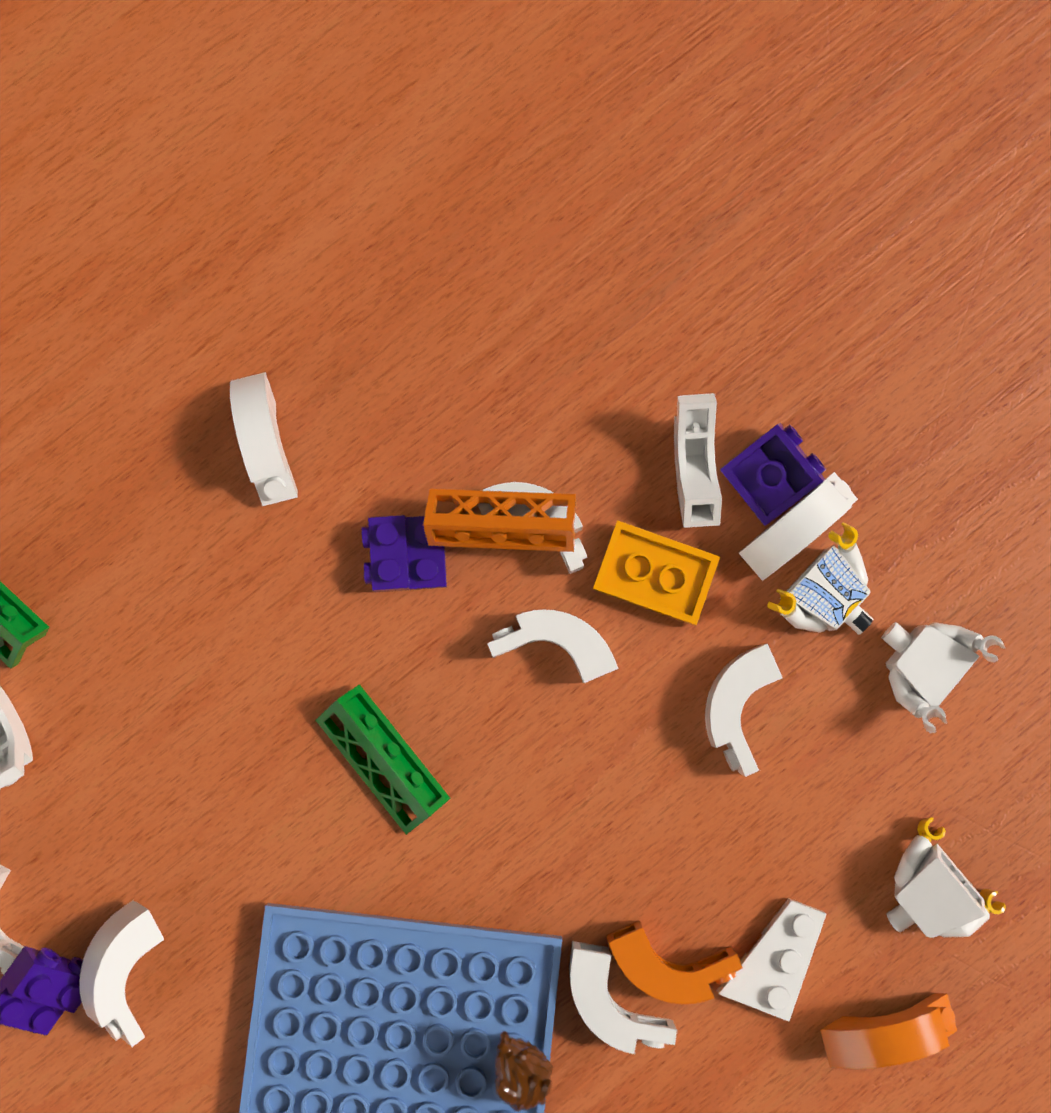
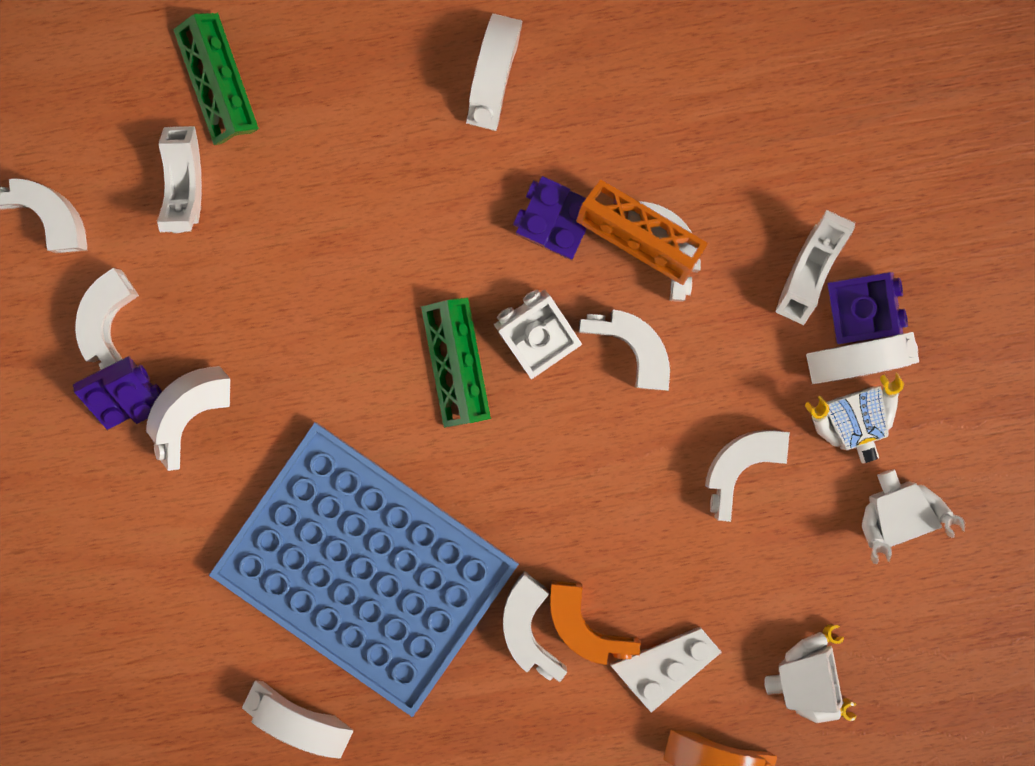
camera: 30 degrees right, 5 degrees up
(450, 682) = (537, 332): none -> white plate
(521, 1073) = (440, 640): reddish brown hair -> none
(656, 573) = (735, 335): light orange plate -> none

